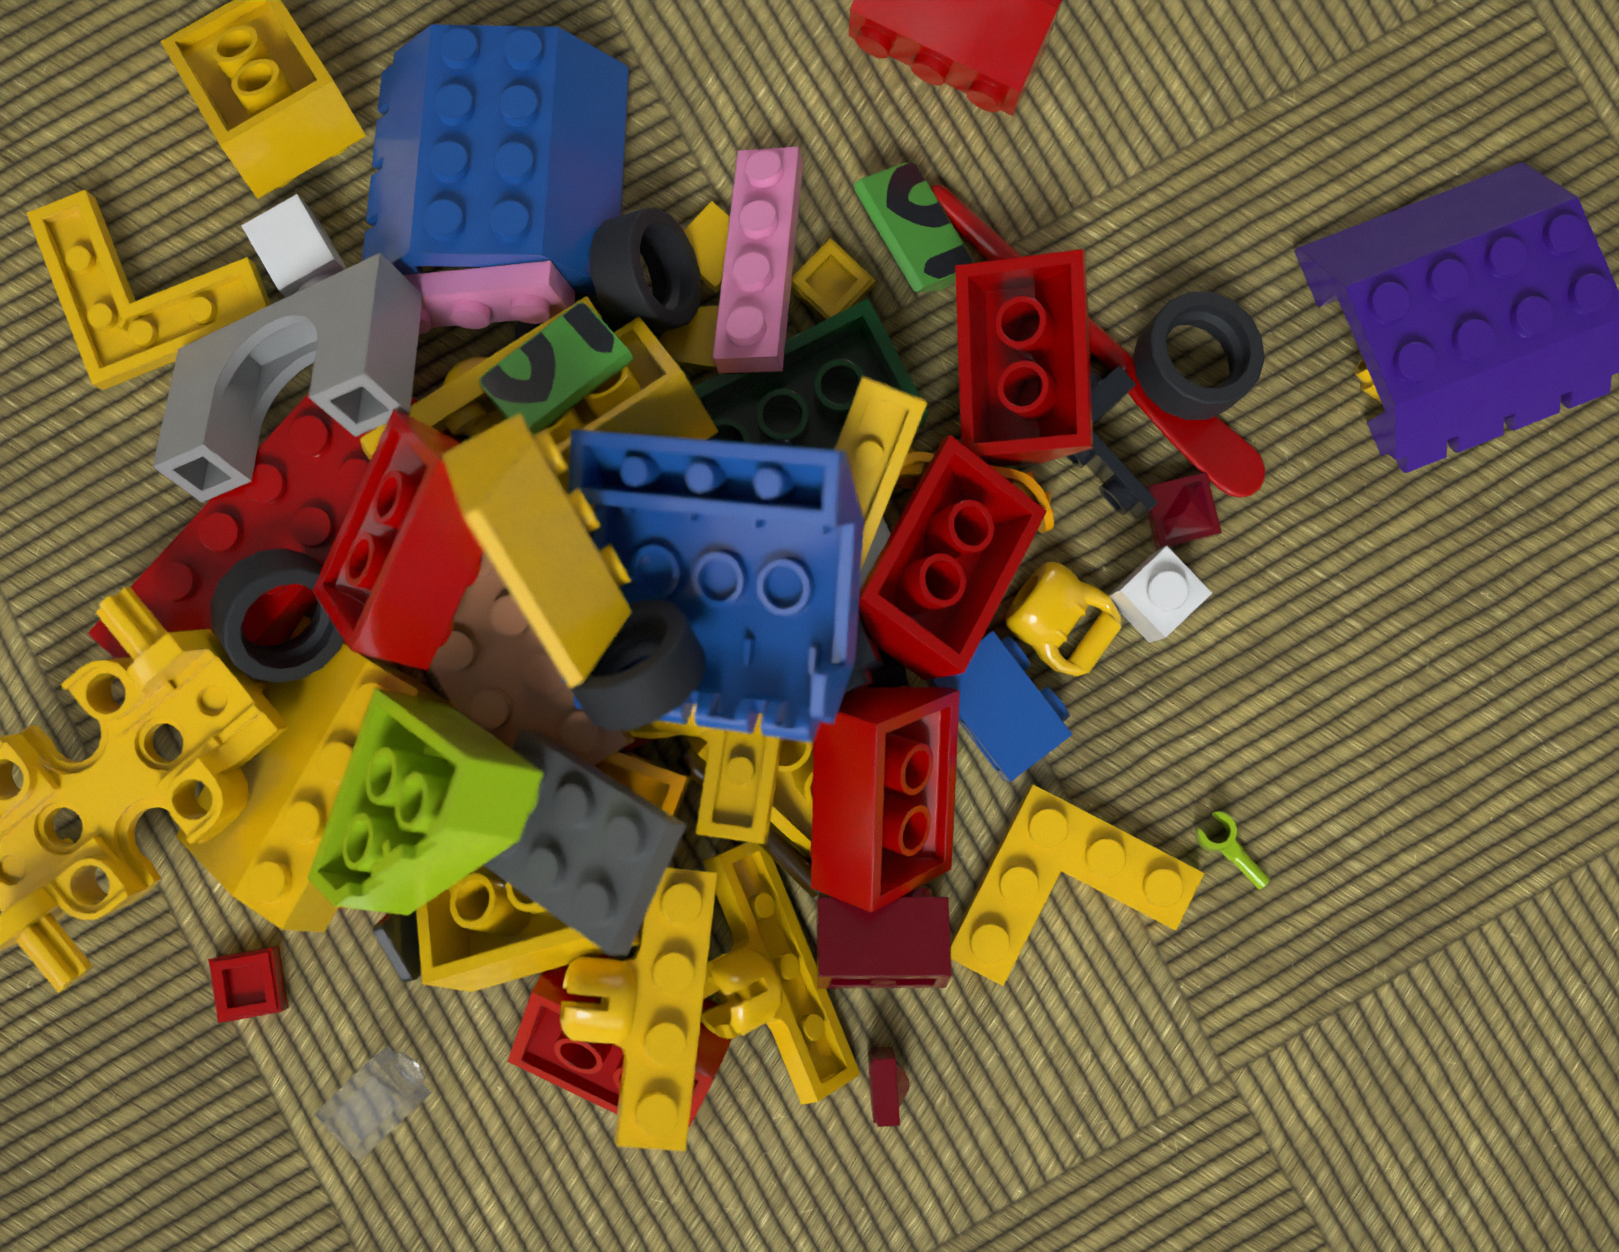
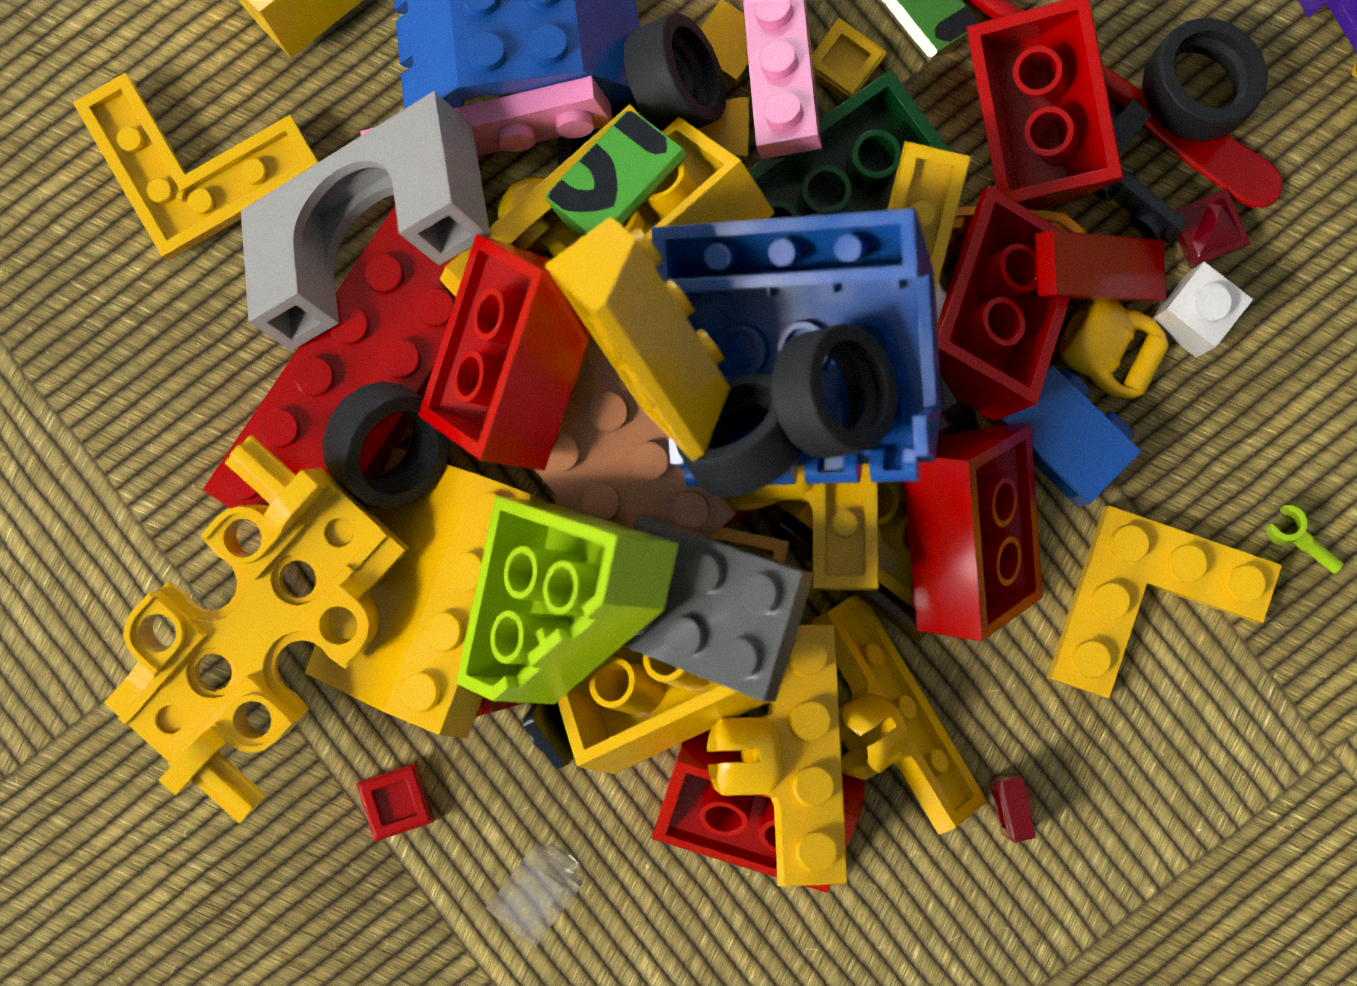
camera: 10 degrees left, 0 degrees up
(293, 246) = (335, 100): white brick -> none
(776, 625) = (801, 401): none -> black tyre
(889, 948) = (993, 677): dark red brick -> none
(1056, 536) = (1099, 267): none -> red tile

